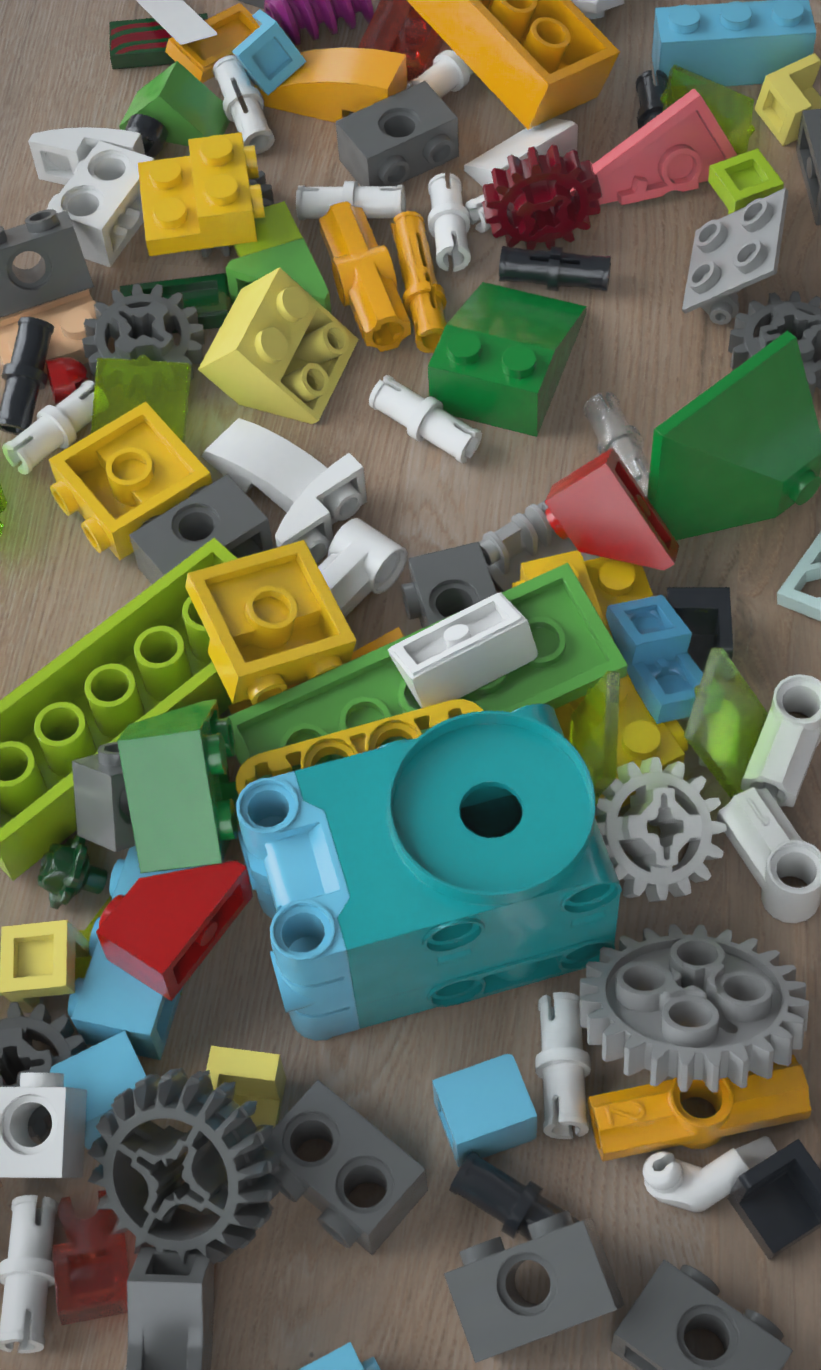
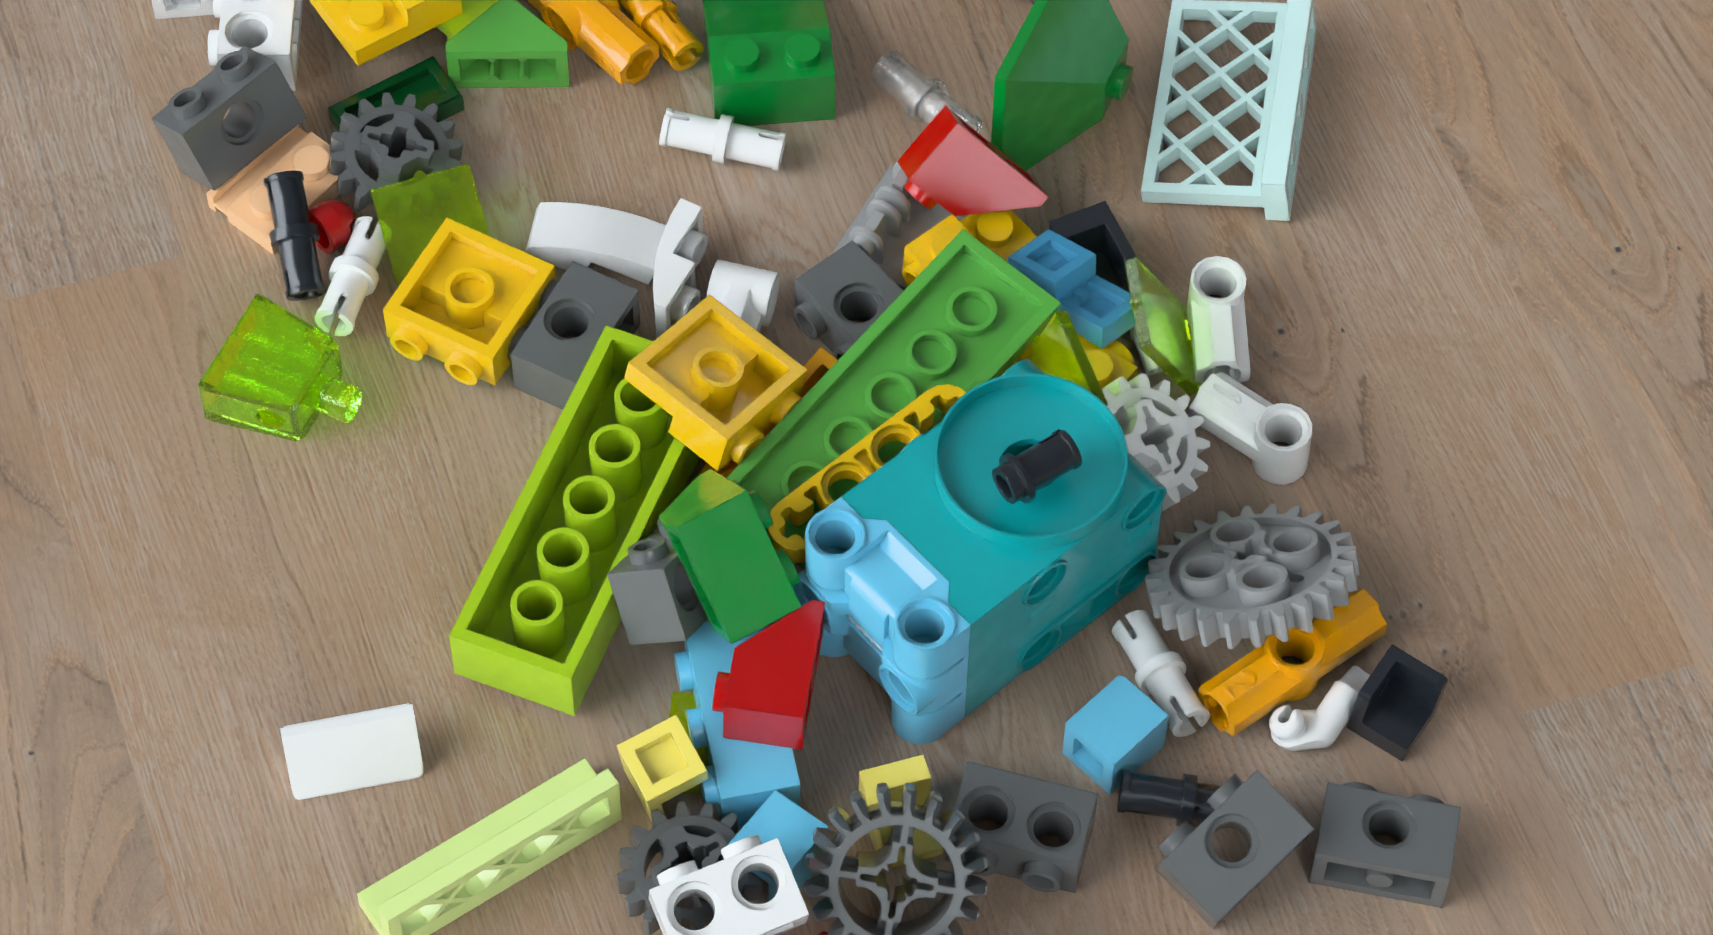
camera: 30 degrees left, 0 degrees up
(68, 870) = (628, 684): dark green plant -> none
(279, 350) = (538, 118): light yellow slope -> none
(465, 651) = (911, 343): white slope -> none
(482, 815) = (1025, 473): none -> black pin

